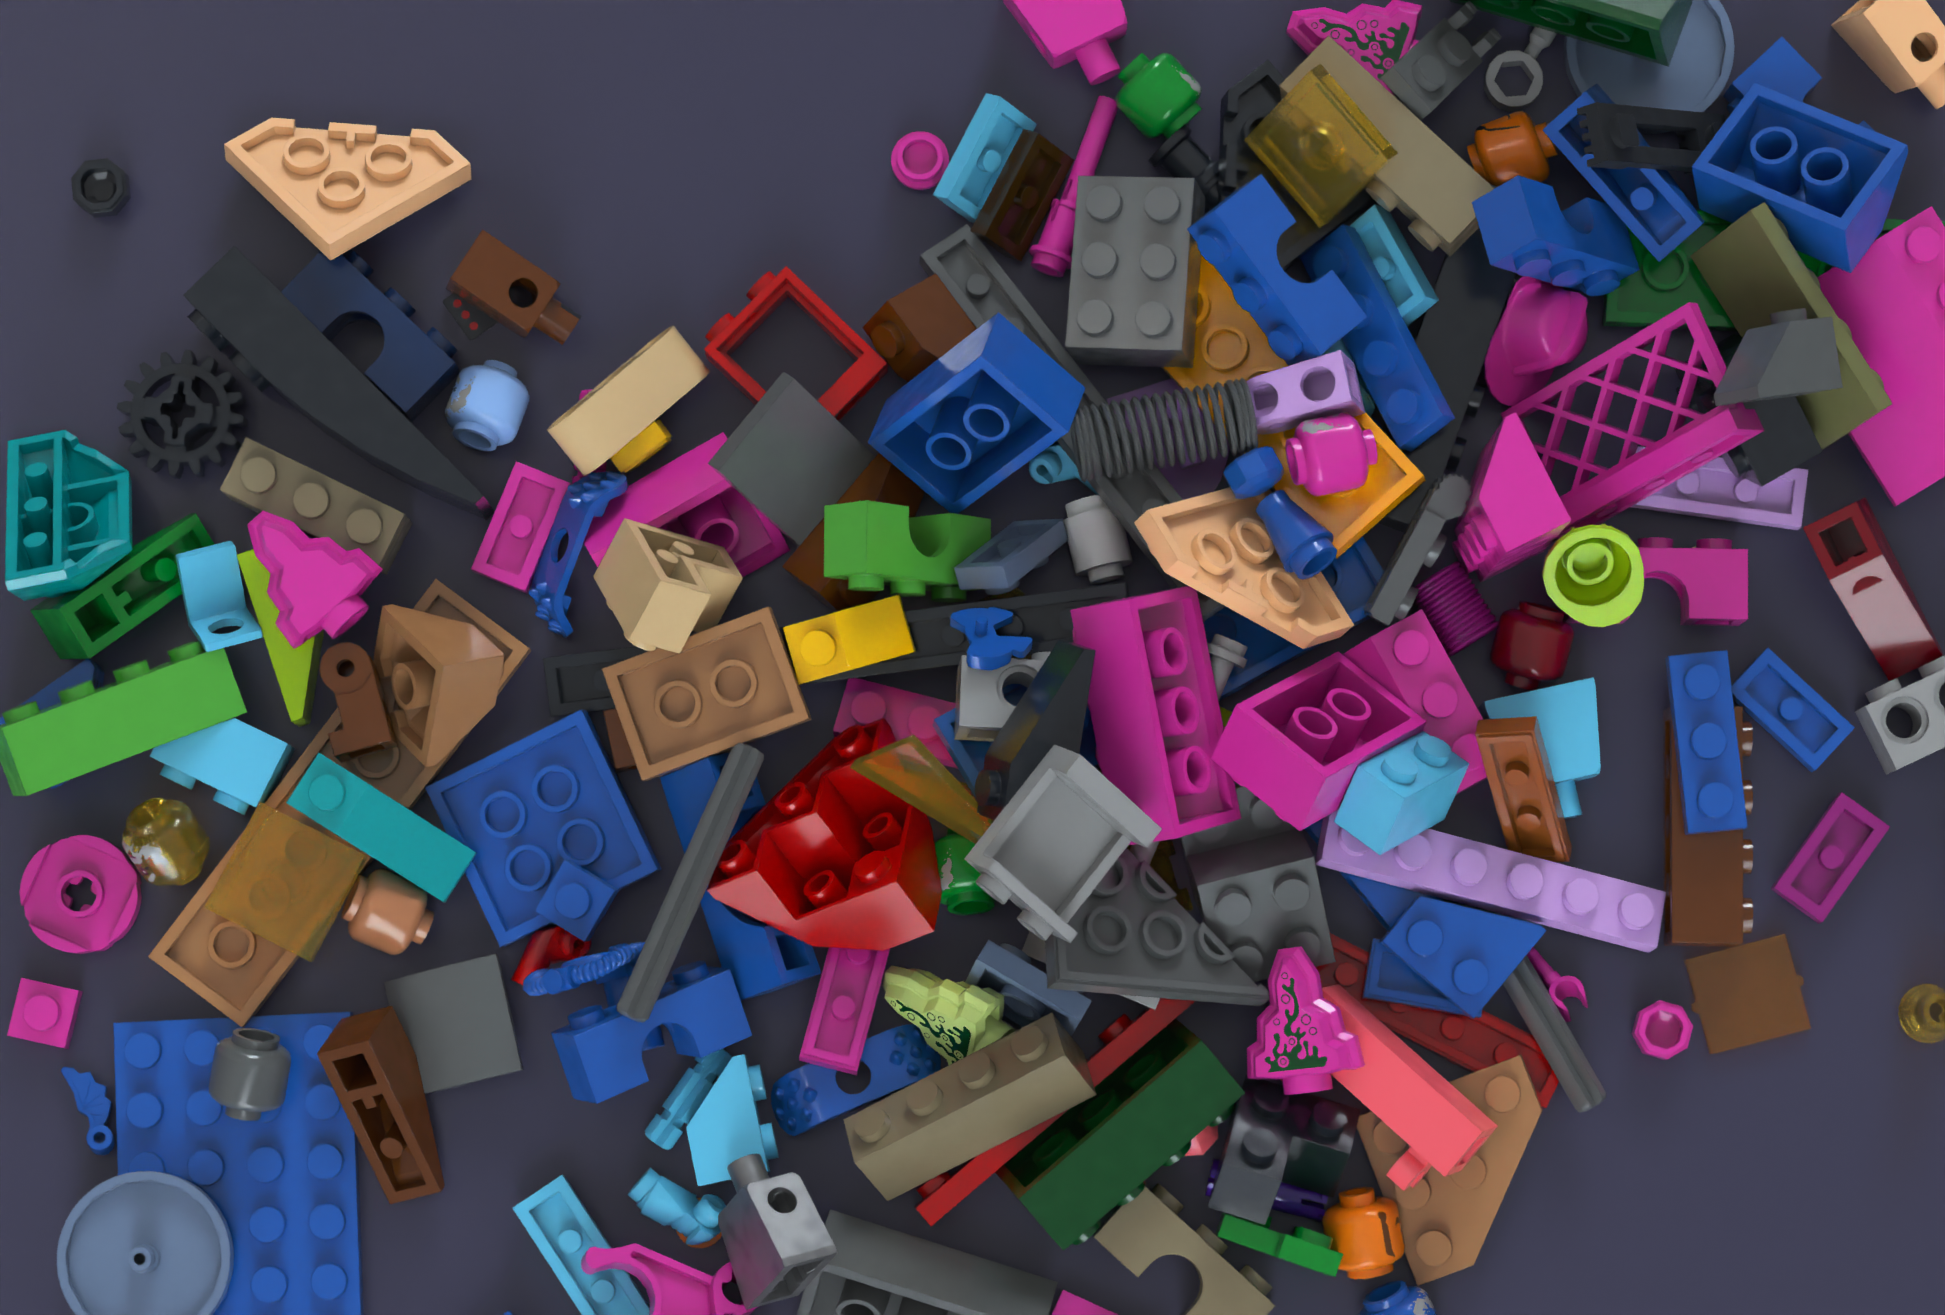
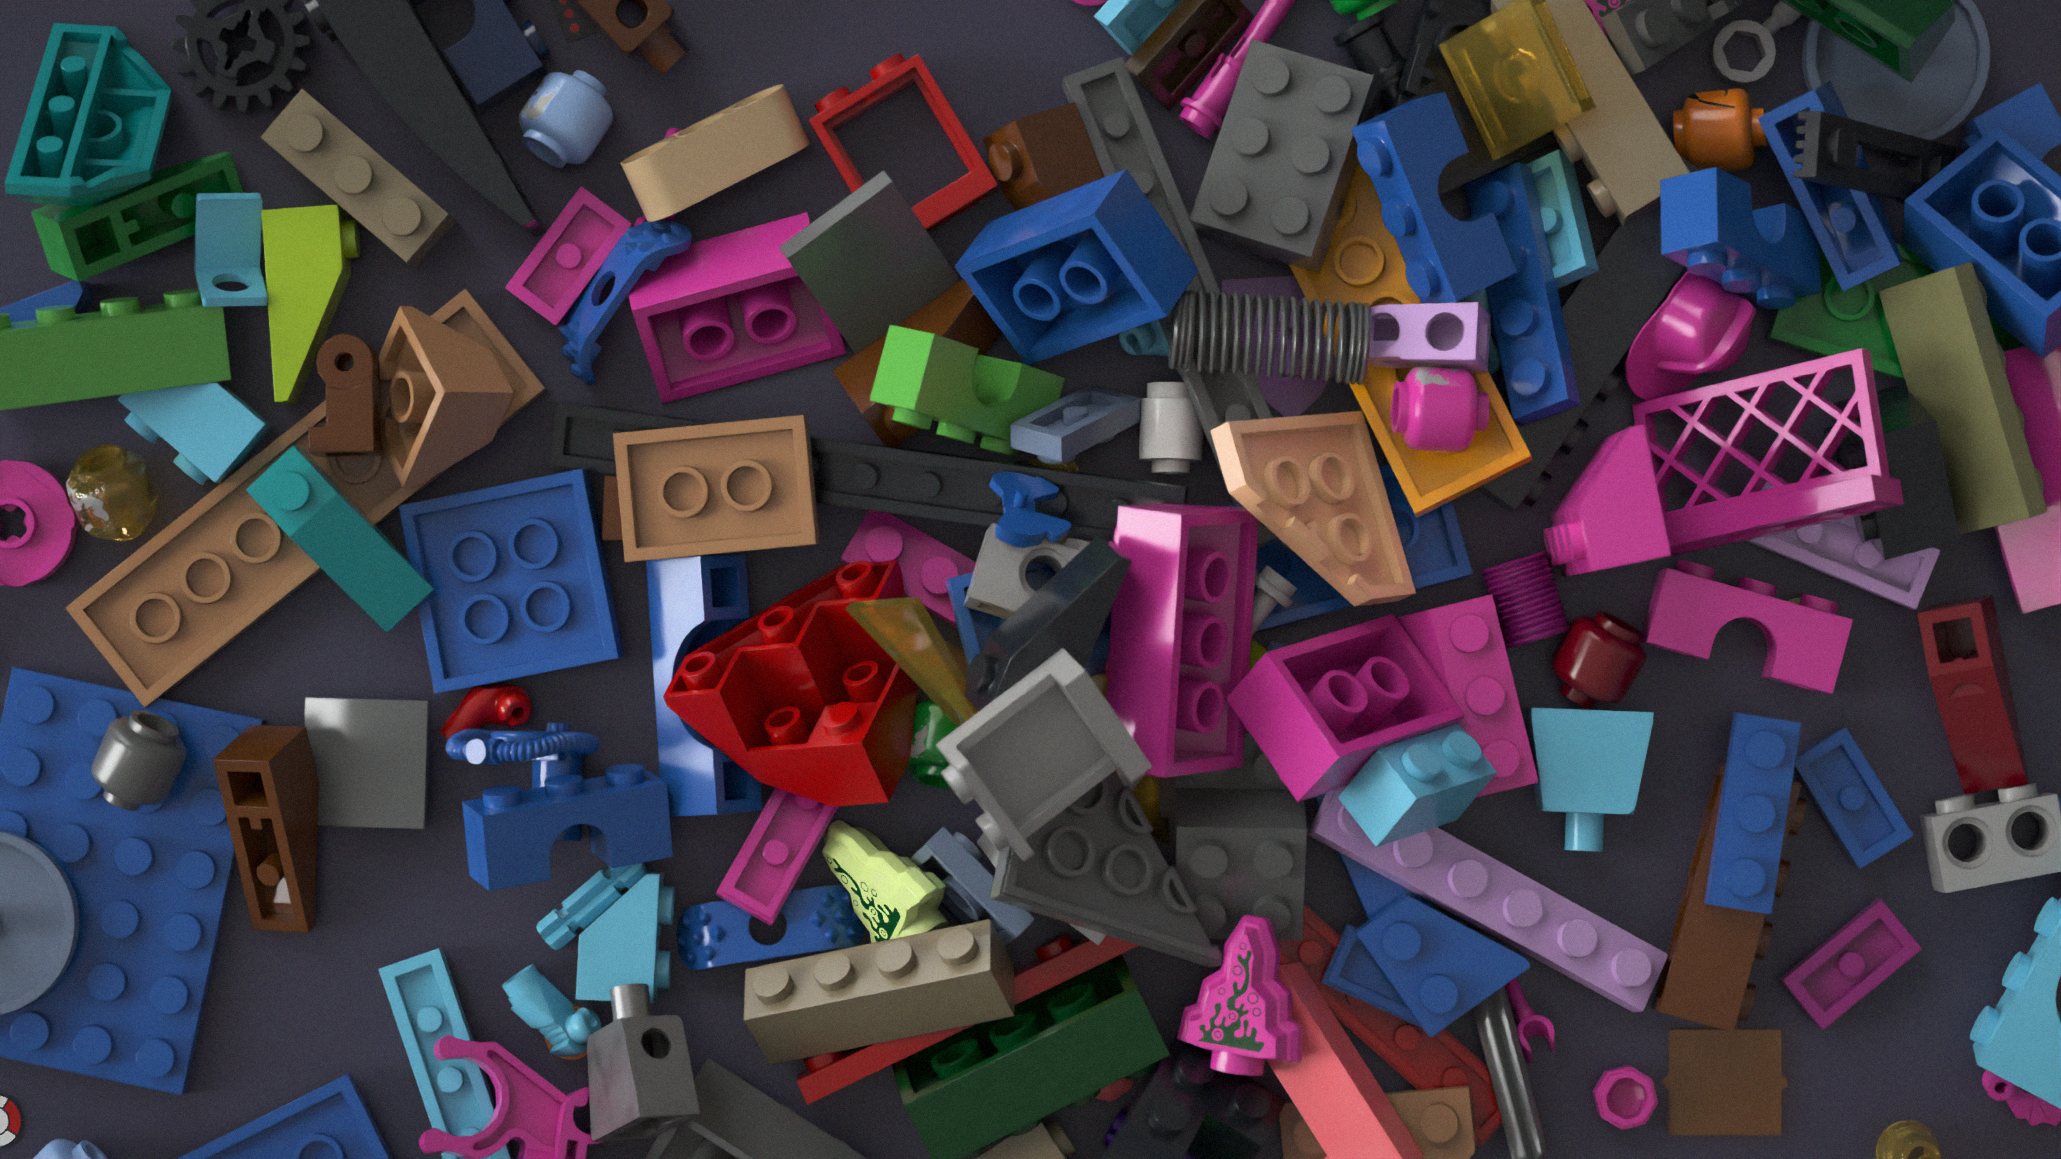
camera: 15 degrees right, 5 degrees up
(286, 882) = (227, 568): clear yellow tile -> none
(311, 579) = (331, 258): dark pink rock -> none
(387, 912) = (325, 626): nougat head -> none
(576, 900) = (525, 668): blue plate -> none
(642, 447) = (717, 206): yellow tile -> none
(665, 585) = (702, 362): tan brick -> none
(690, 882) = (646, 685): dark grey axle -> none
(849, 639) = (880, 471): yellow slope -> none
(1254, 472) = (1353, 406): blue tile -> none
(1297, 537) = (1379, 485): blue cone -> none
(1418, 546) = (1504, 528): dark grey hinge -> none
(1523, 787) = (1547, 811): dark orange tile -> none
(1595, 575) = (1683, 608): lime piece -> none
(1782, 360) = (1942, 438): dark grey slope -> none

